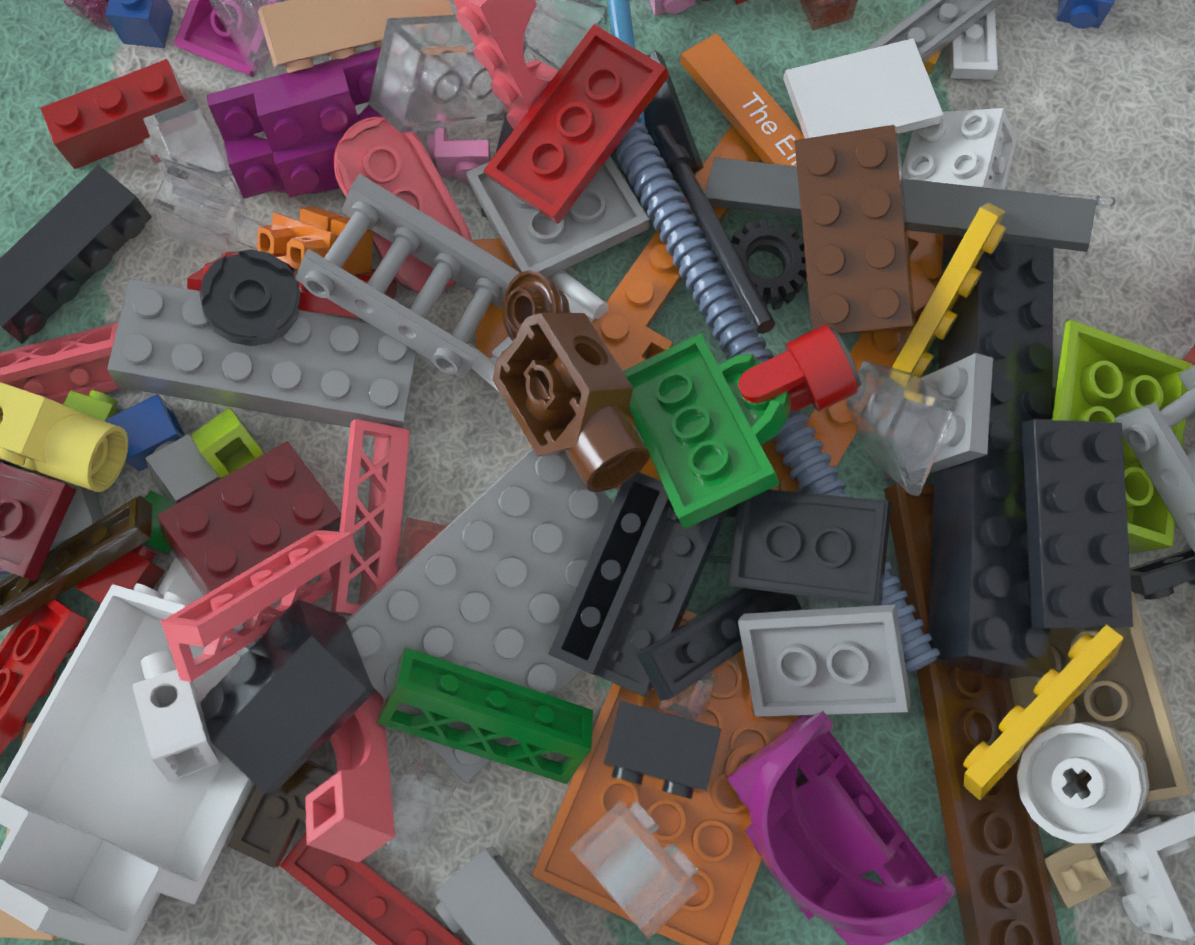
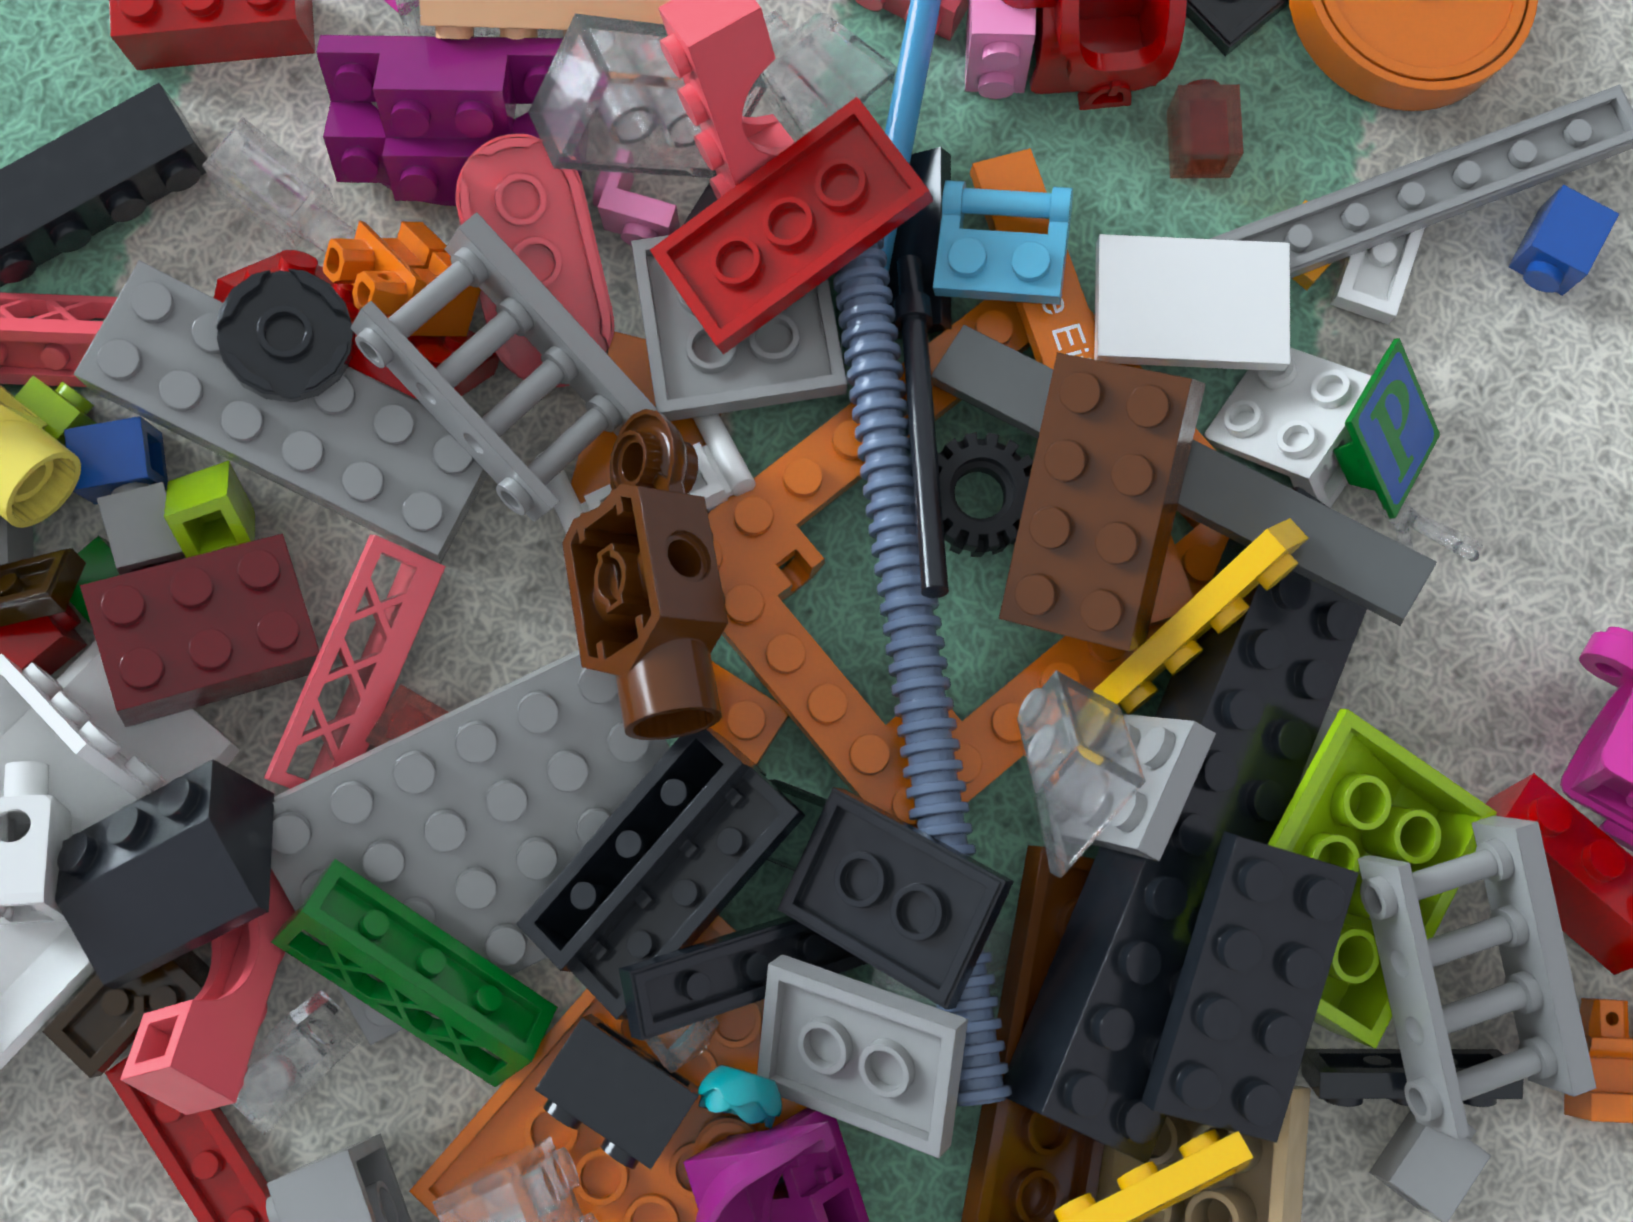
camera: 15 degrees right, 5 degrees up
(188, 141) = (285, 97): clear slope -> none
(249, 597) = (158, 743): coral fence -> none
(711, 418) = (822, 689): green plate -> none
(727, 108) = (1002, 262): none -> medium azure plate
(750, 720) = (741, 1094): none -> teal plate
(1024, 142) = (1389, 432): none -> piece

